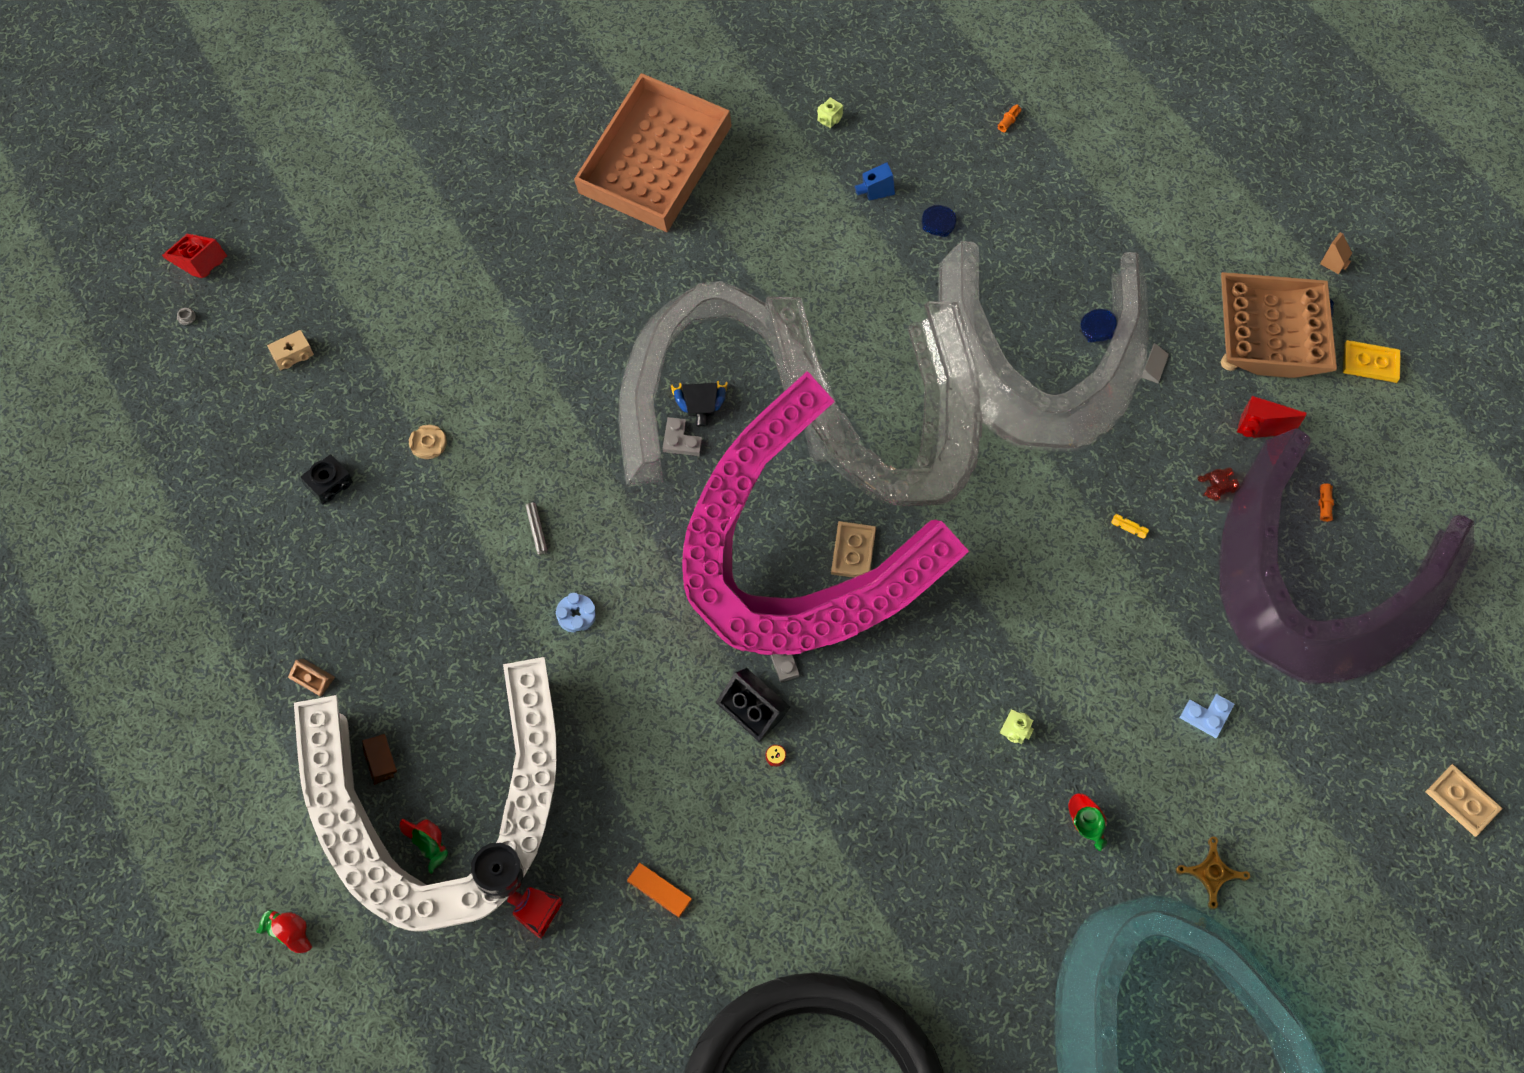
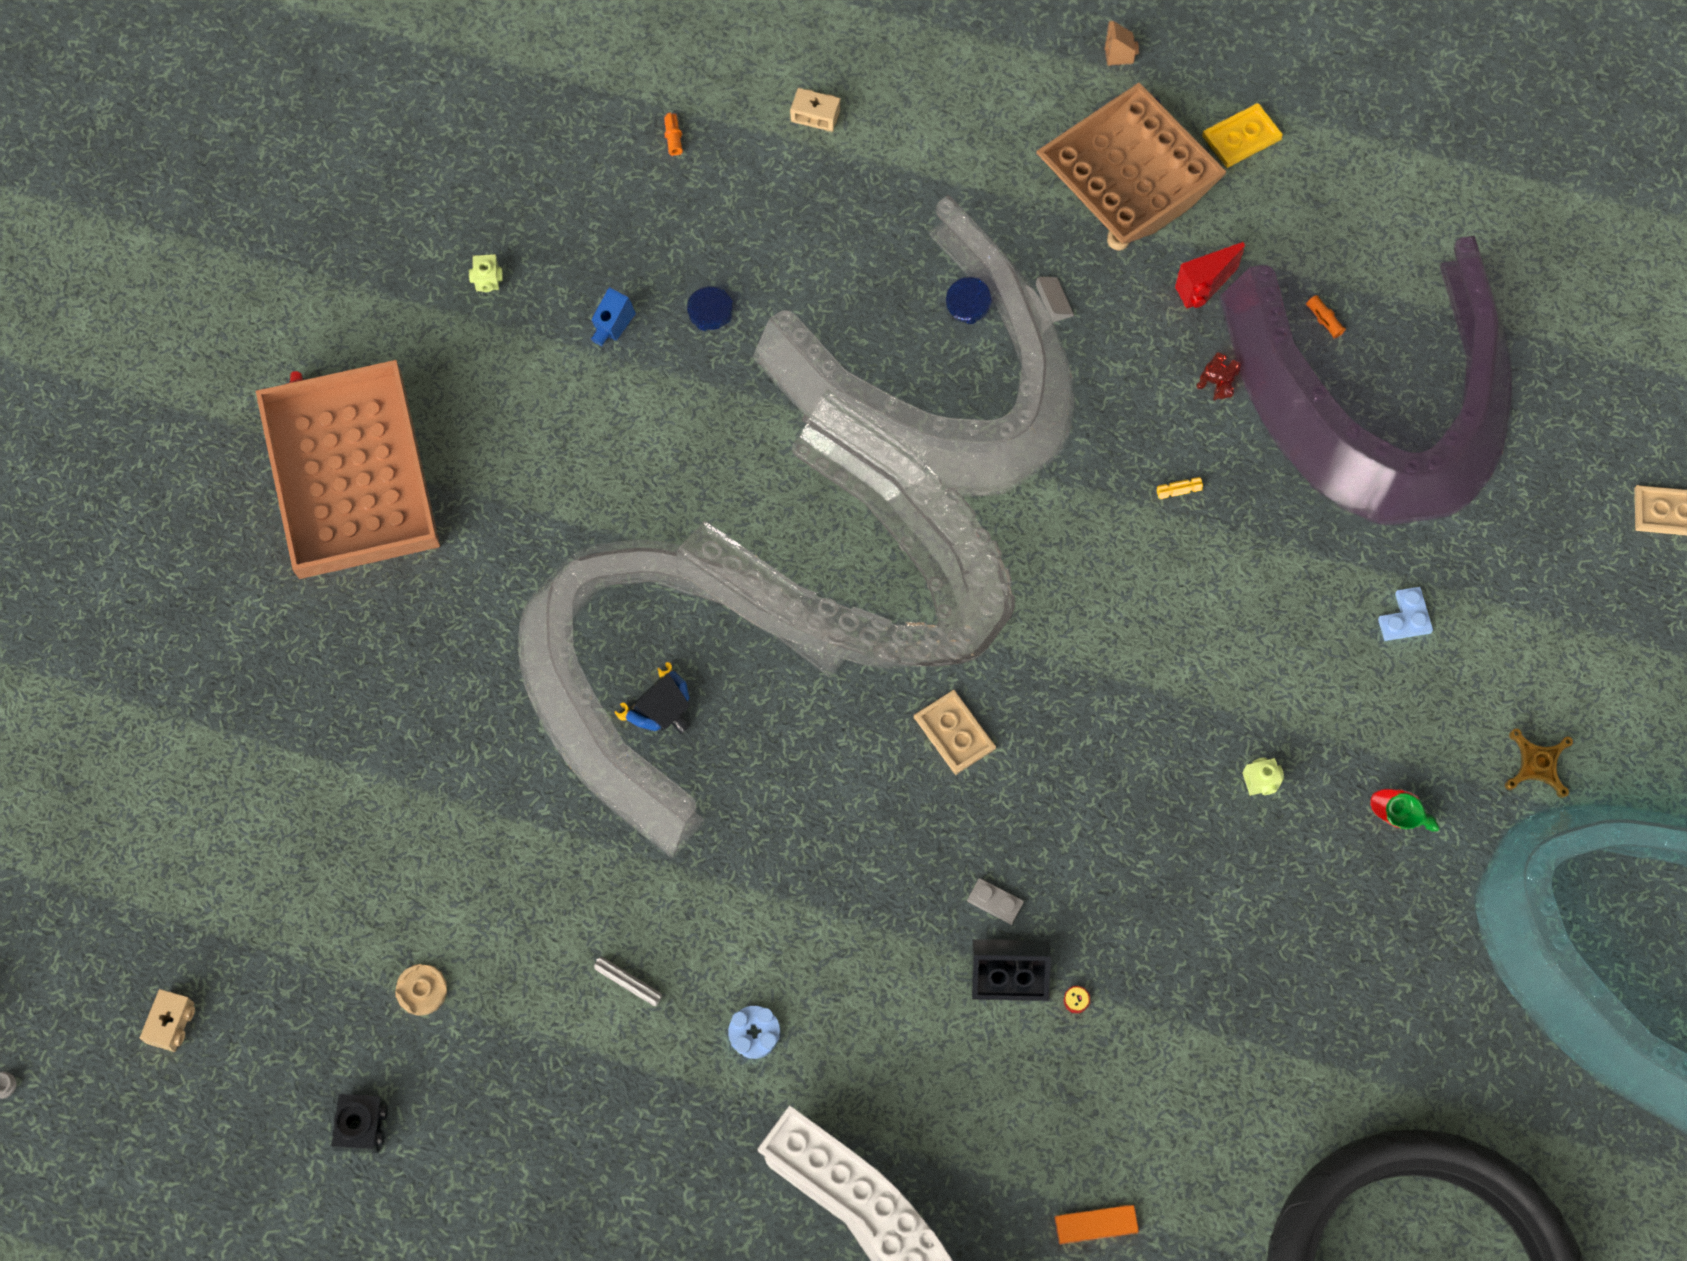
camera: 40 degrees left, 5 degrees up
(677, 442) = (678, 767): light grey plate -> none
(806, 621) = (999, 819): dark pink windscreen -> none
(1107, 161) = (815, 109): none -> tan brick

